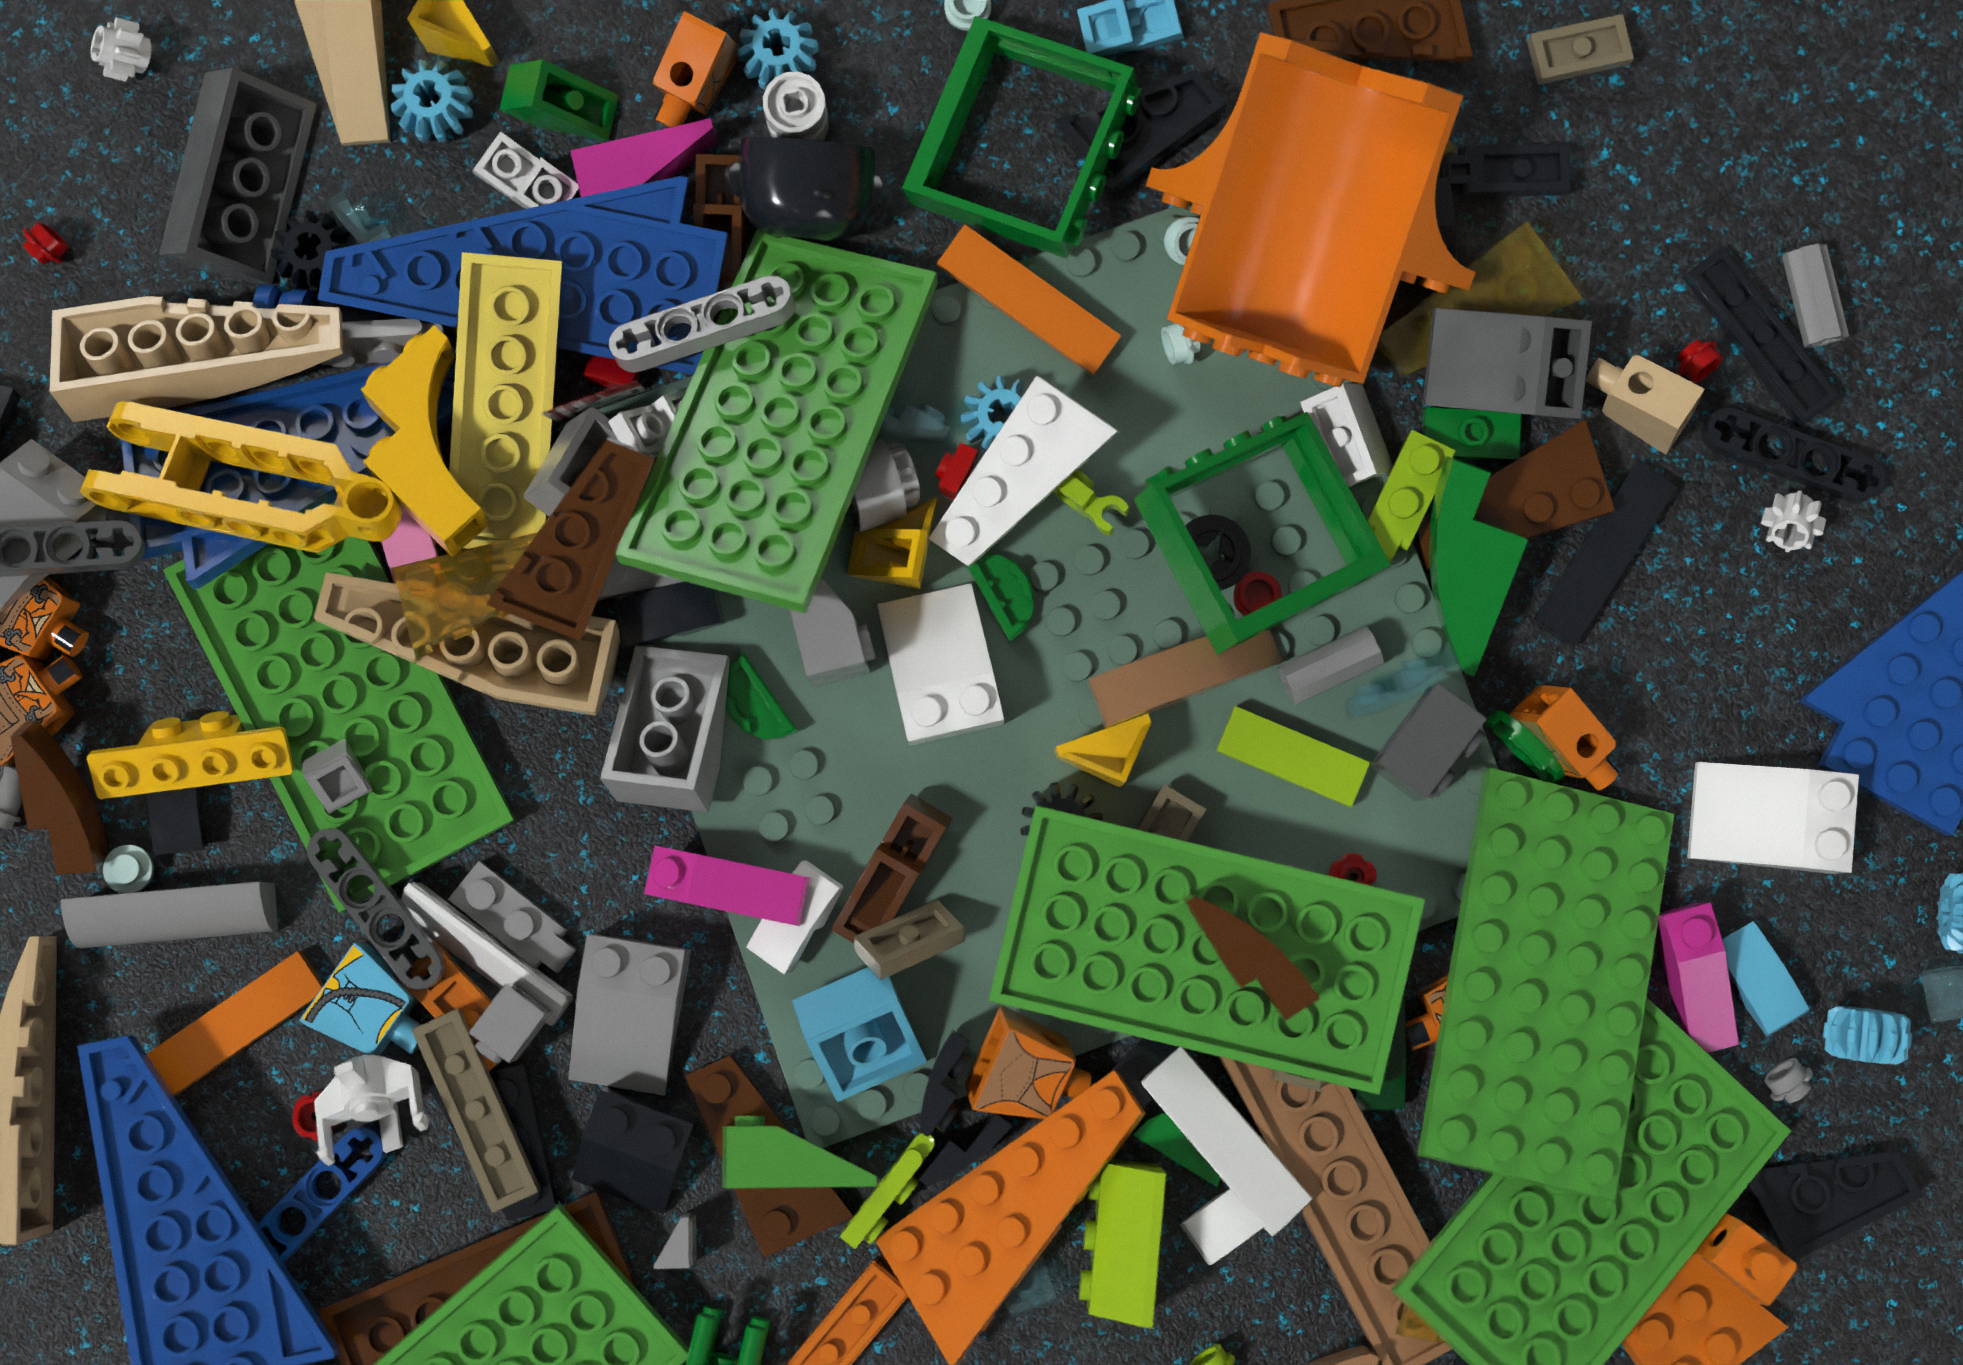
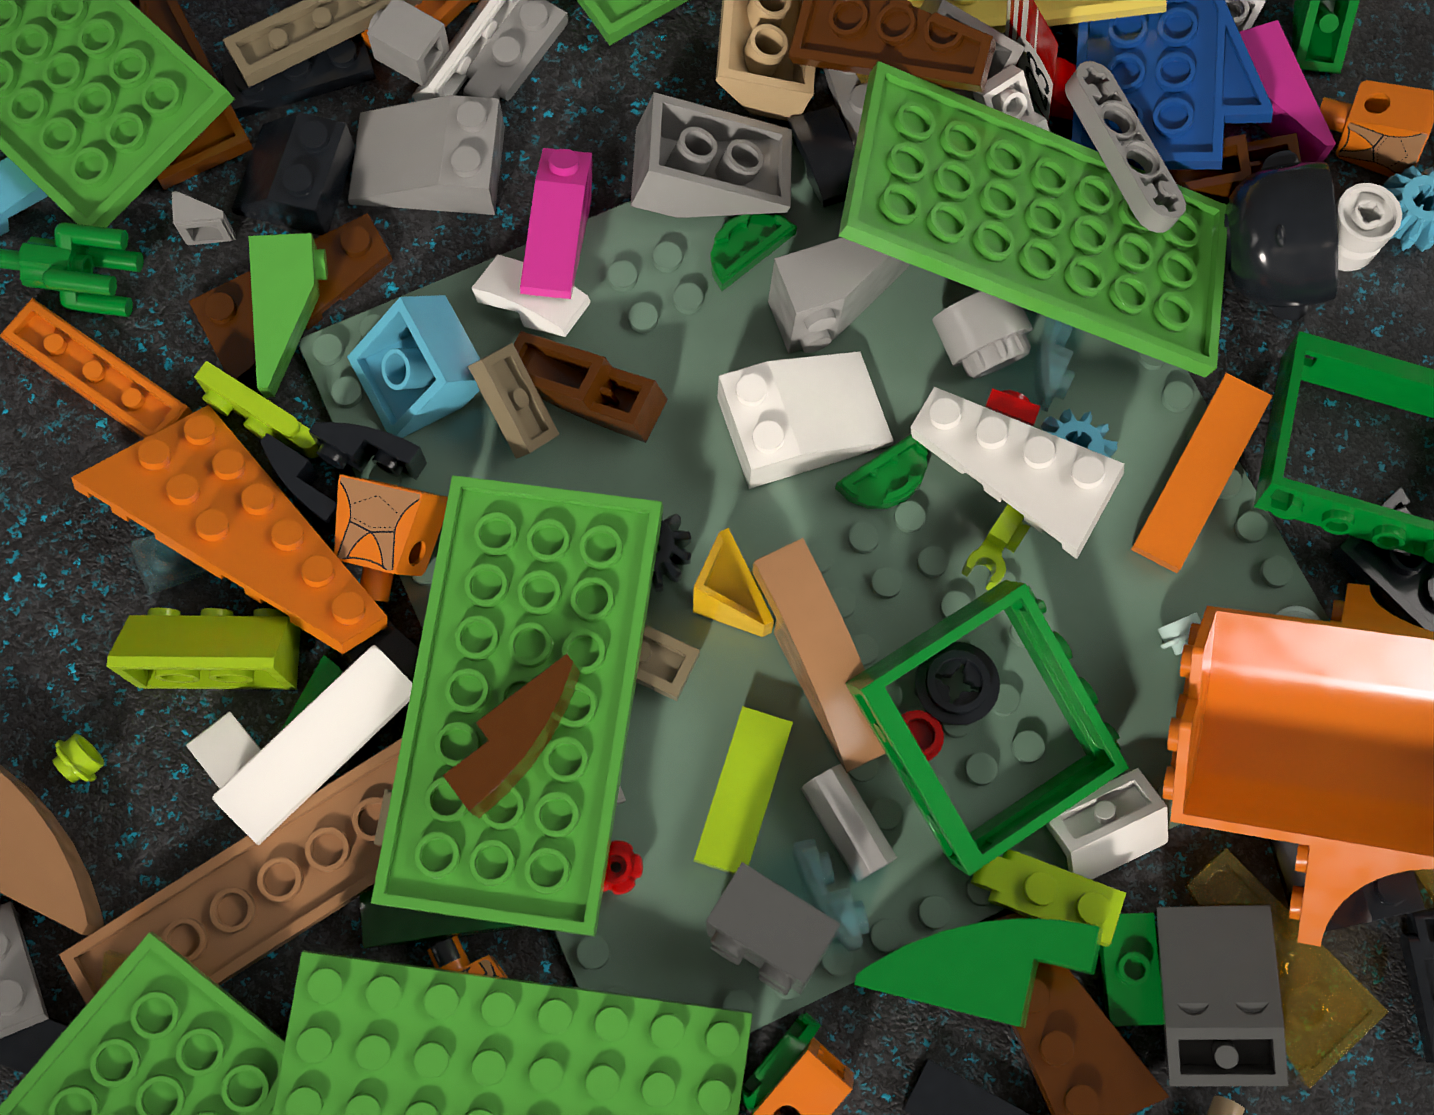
camera: 85 degrees right, 10 degrees down
(895, 550) = (918, 363): yellow slope -> none

